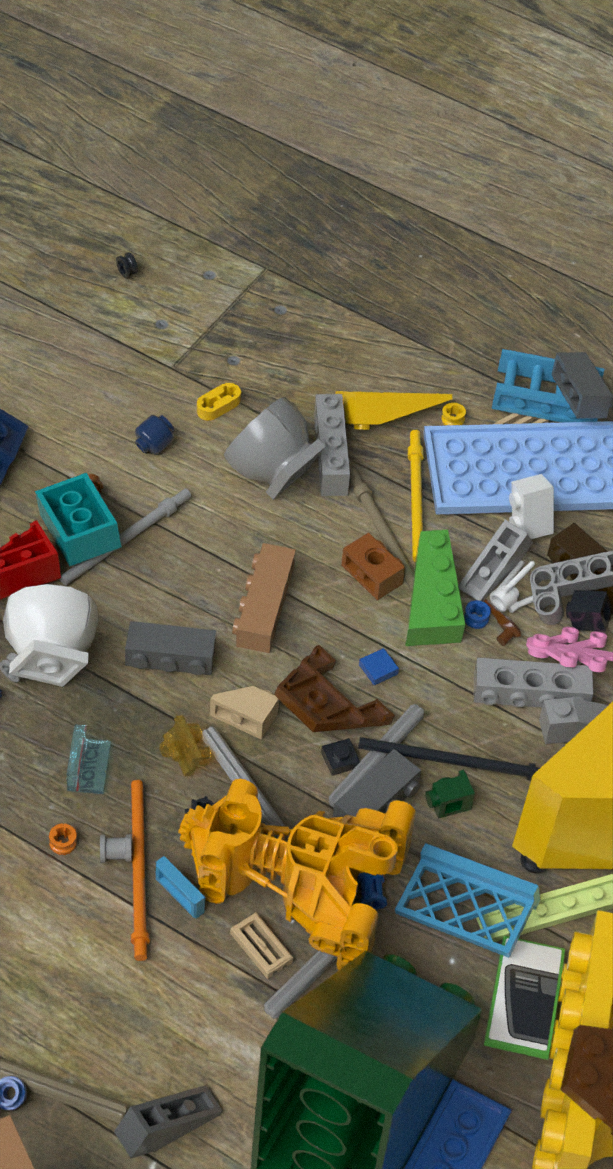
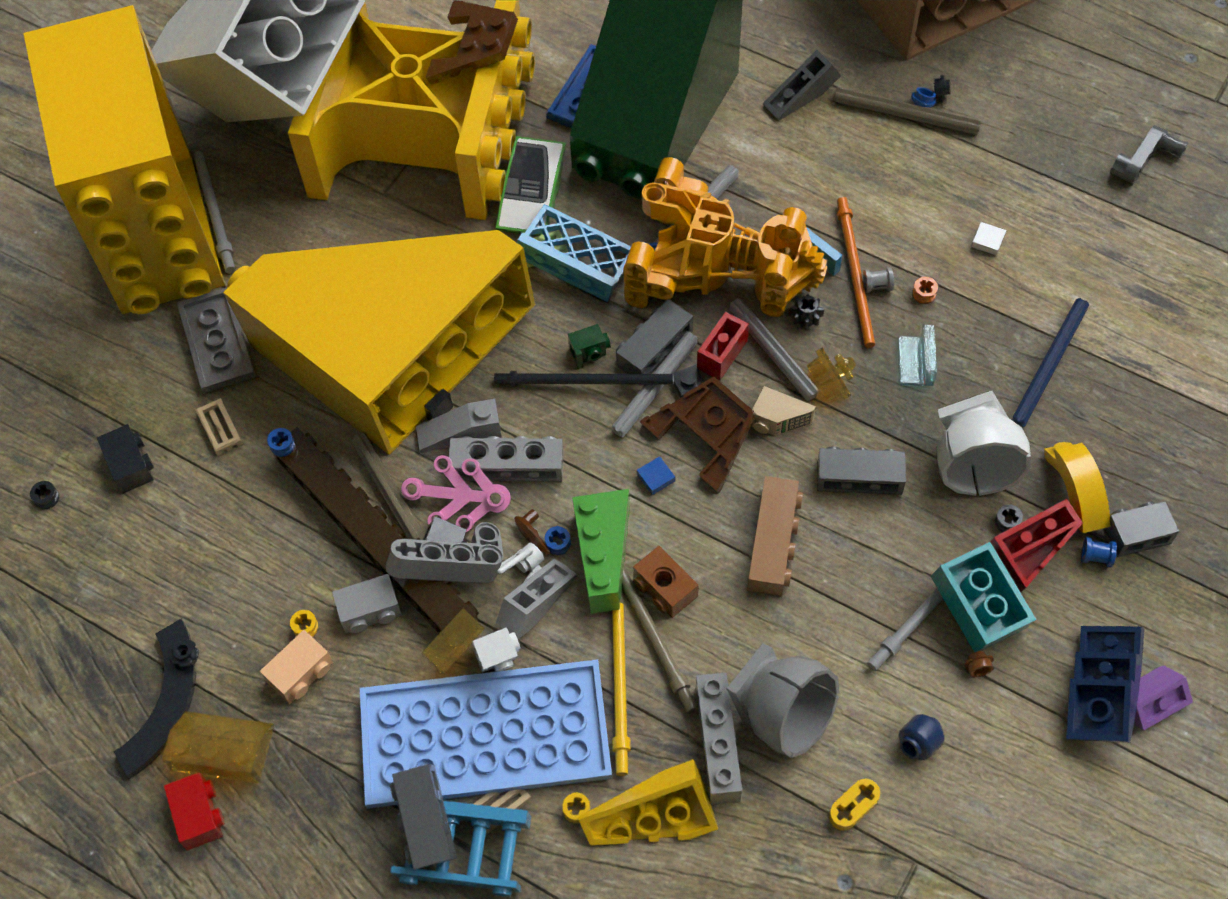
camera: 175 degrees left, 10 degrees up
(264, 967) = (741, 218): tan tile -> none
(302, 774) = (722, 346): none -> red brick
(569, 517) = (453, 641): none -> clear yellow panel

